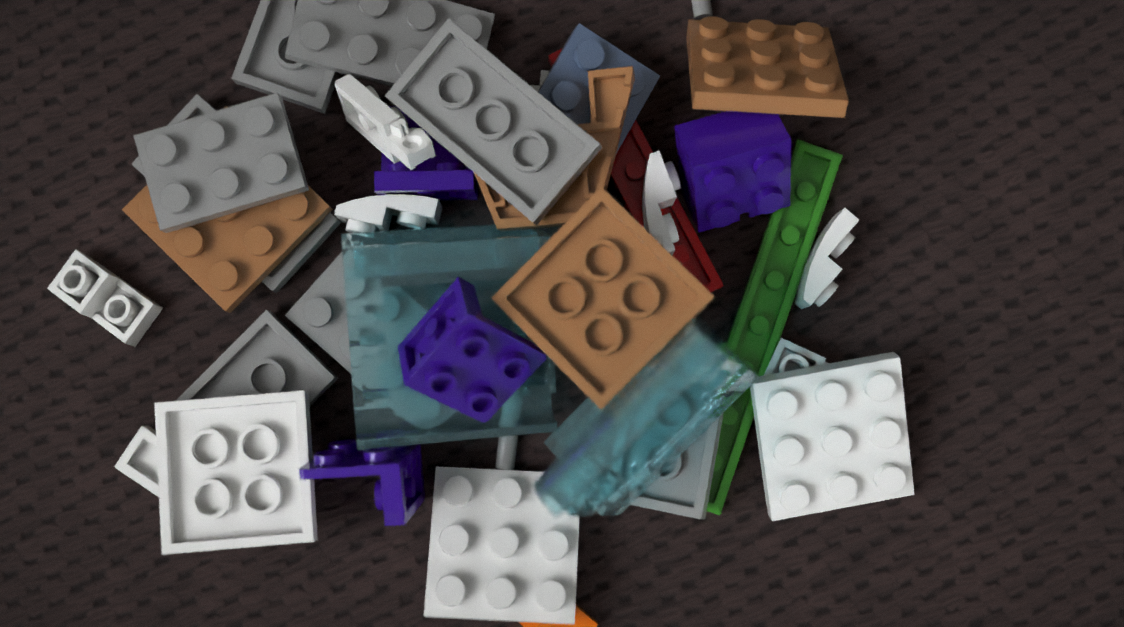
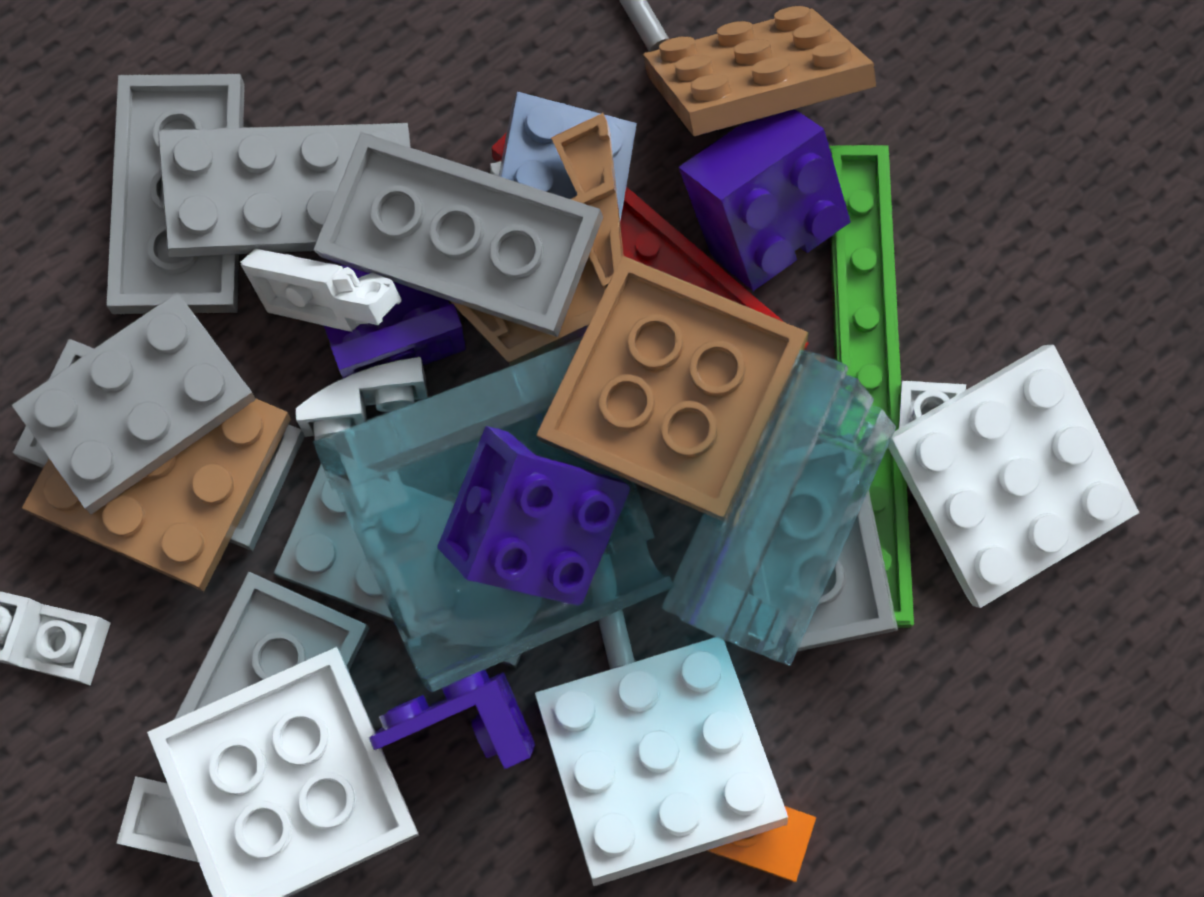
camera: 20 degrees left, 10 degrees down
(658, 193) = (688, 250): white slope -> none
(820, 271) = (915, 278): white slope -> none

